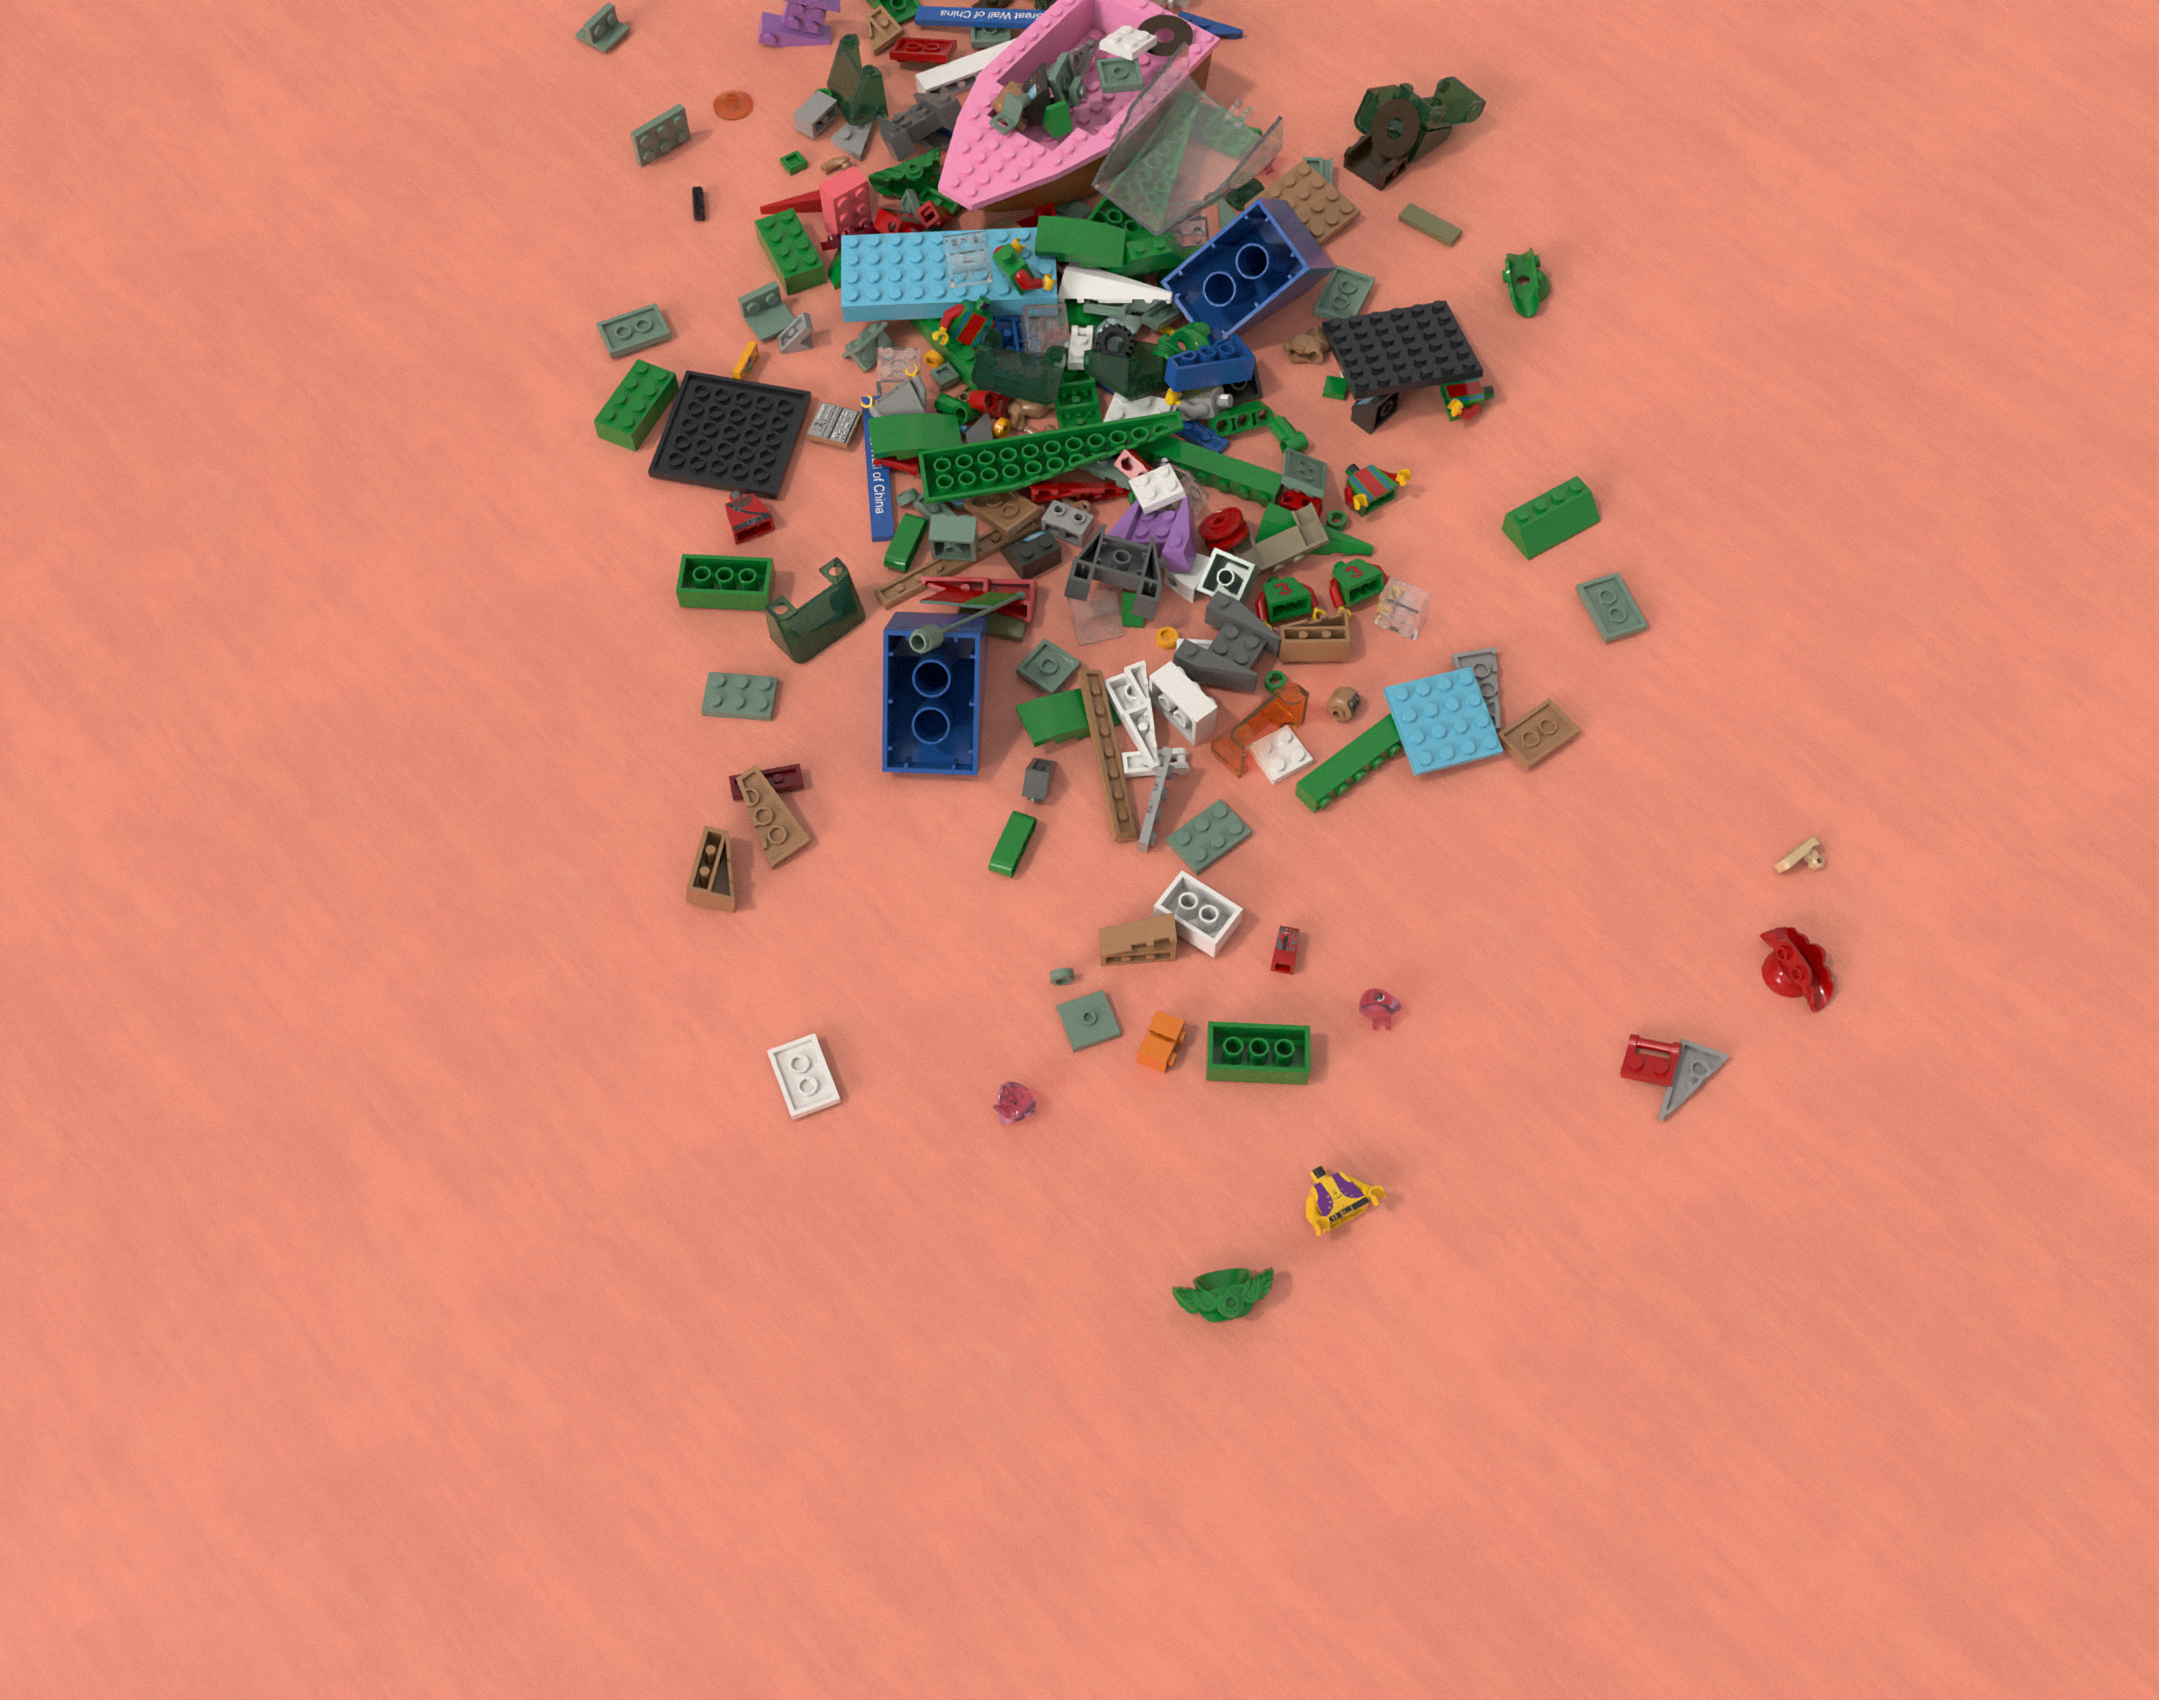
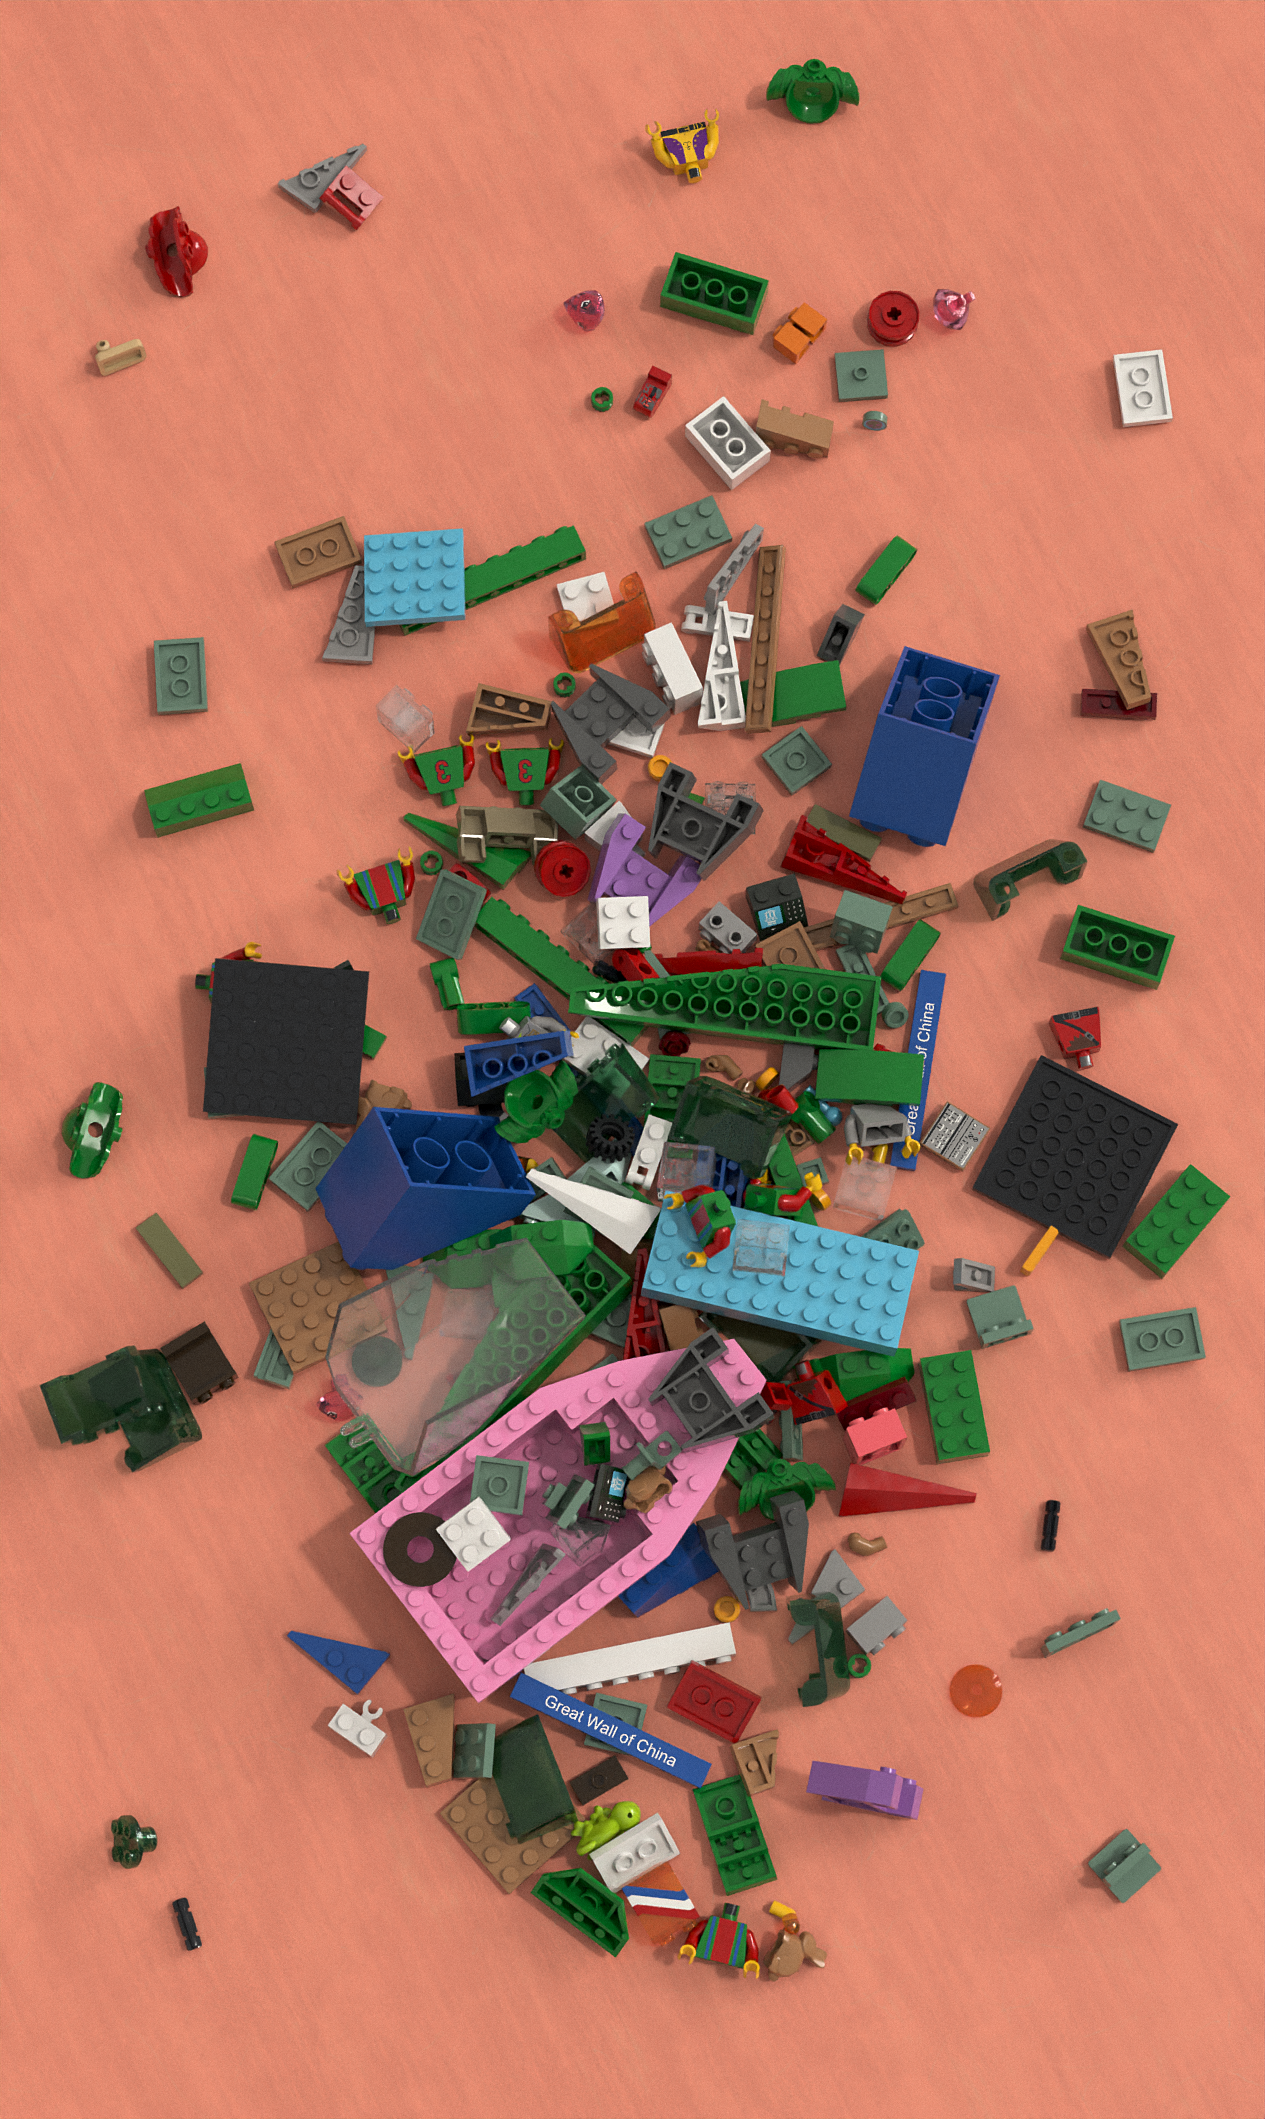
camera: 165 degrees left, 15 degrees up
(712, 872) = (1192, 610): medium nougat wedge -> none
(793, 162) = (918, 1565): green tile -> none
(931, 635) = (862, 832): flag -> none
(982, 143) = (703, 1402): none -> dark grey wedge
(1075, 1066) = (880, 320): none -> red wheel
(1080, 241) = (618, 1252): green slope -> none
(1329, 941) = (606, 404): none -> green bush
(1343, 703) = (504, 635): medium nougat head -> none
(1387, 281) = (254, 1172): none -> green beam
(1395, 109) = (165, 1350): dark brown sticker -> none

